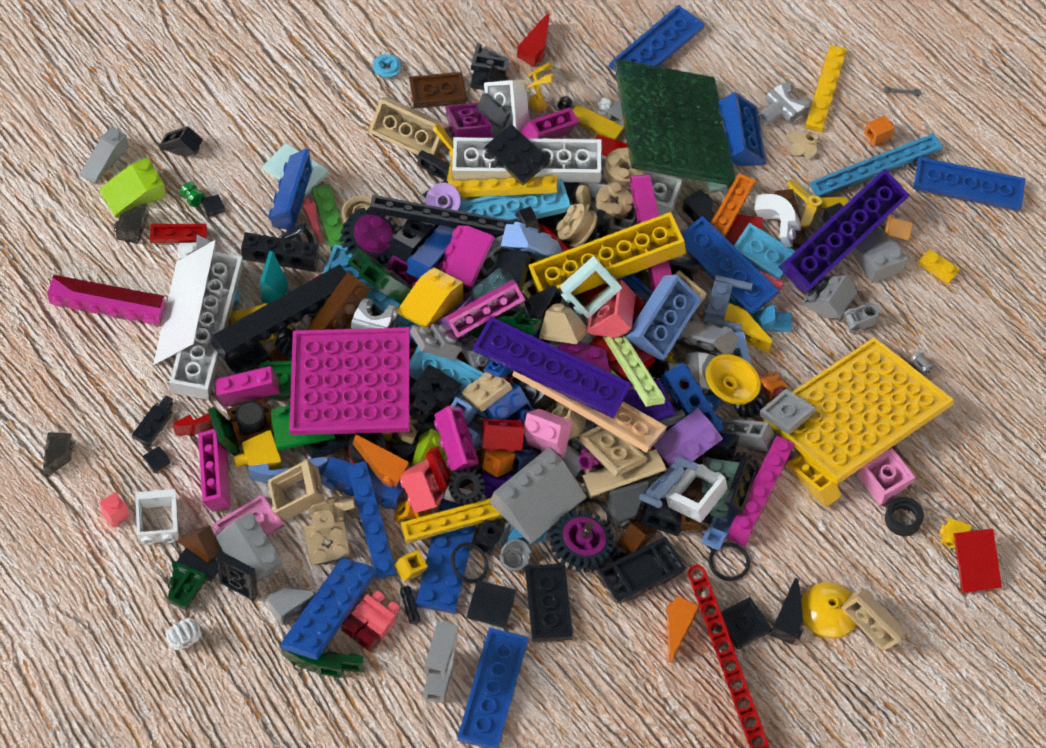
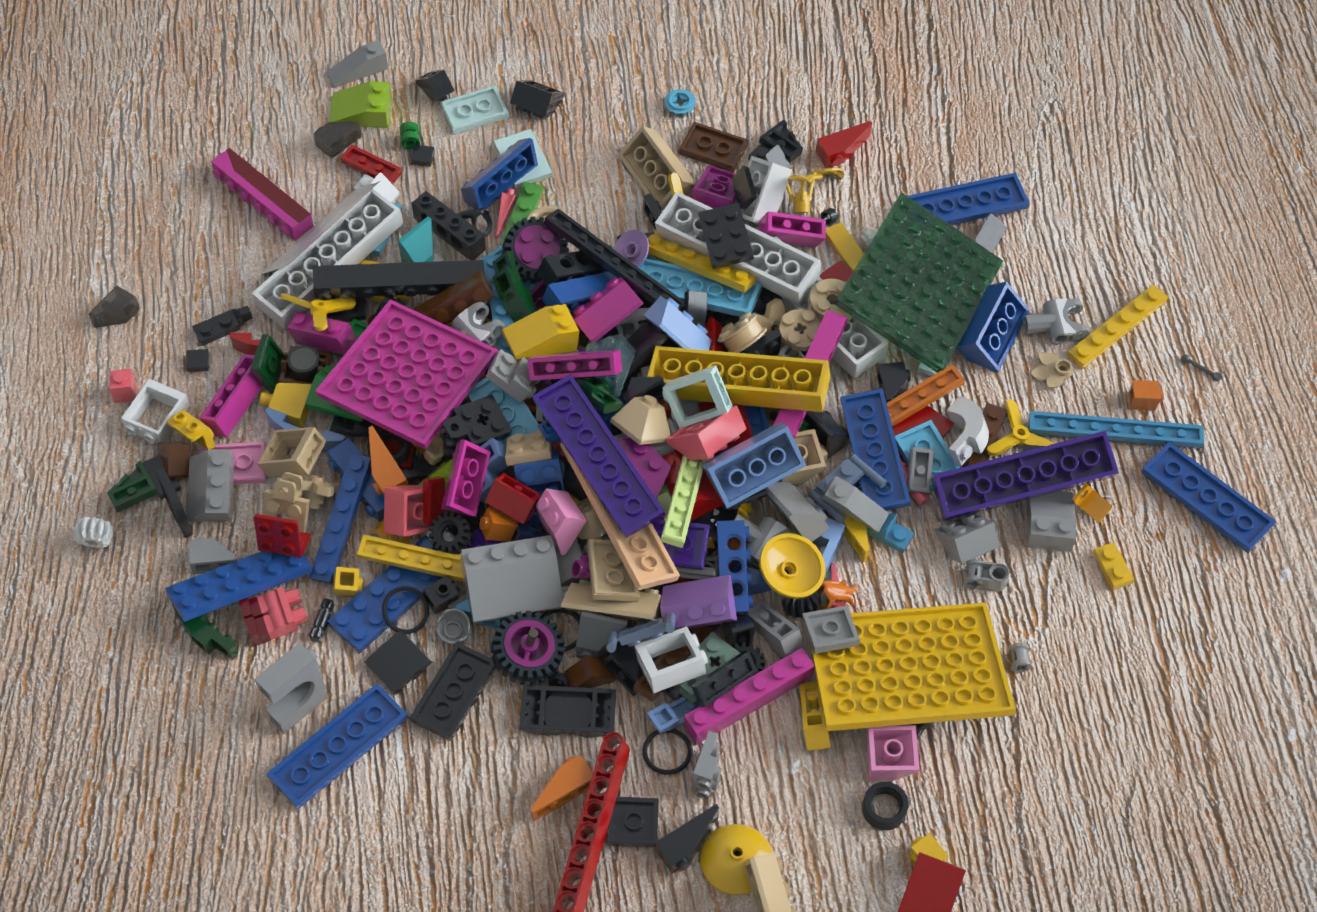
camera: 35 degrees right, 0 degrees up
(202, 513) = (192, 429): none -> yellow bracket
(226, 148) = (474, 109): none -> light aqua tile
(237, 367) = (320, 308): none -> yellow piece
(272, 115) = (536, 98): none -> black slope
(340, 556) = (280, 536): none -> red bracket
(690, 59) = (990, 233): none -> slope
(742, 311) = (854, 504): none -> light grey slope
(766, 262) = (920, 469): none -> light grey slope
(770, 555) = (706, 772): none -> light grey plate

